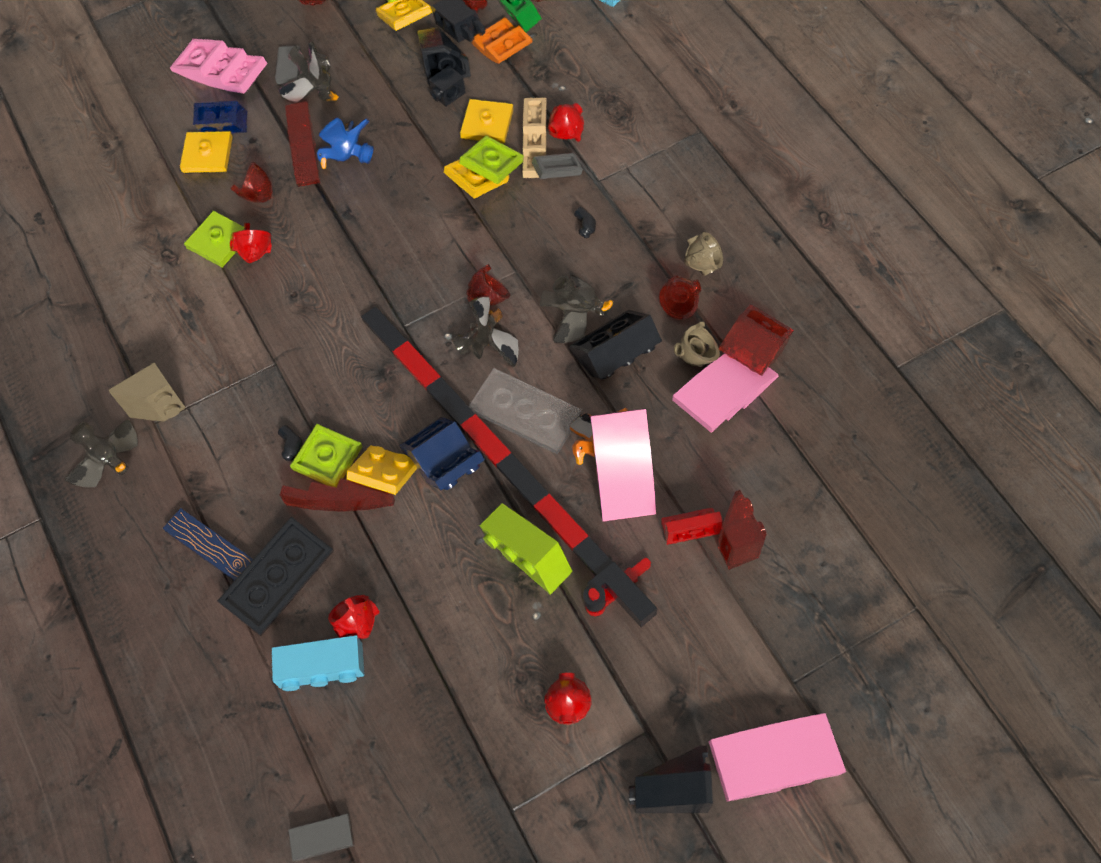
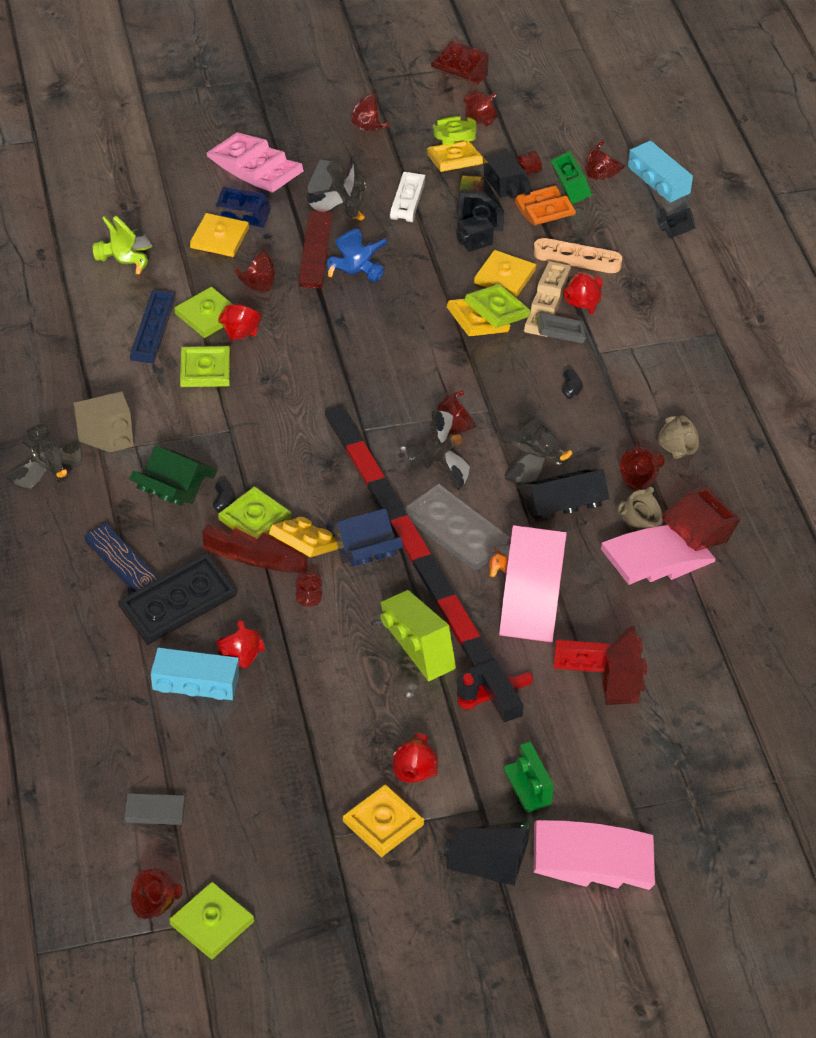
camera: 10 degrees right, 15 degrees down
(116, 190) = (123, 245): none -> lime animal
(168, 269) = (152, 326): none -> dark blue tile
(231, 300) = (205, 366): none -> lime plate
(232, 437) = (172, 476): none -> dark green bracket
(372, 64) = (407, 196): none -> white plate
(399, 522) = (306, 583): none -> clear red wheel
(547, 81) = (610, 260): none -> light nougat beam
(556, 780) = (383, 820): none -> yellow plate
(628, 26) = (676, 223): none -> black bracket
(686, 688) = (530, 779): none -> green bracket

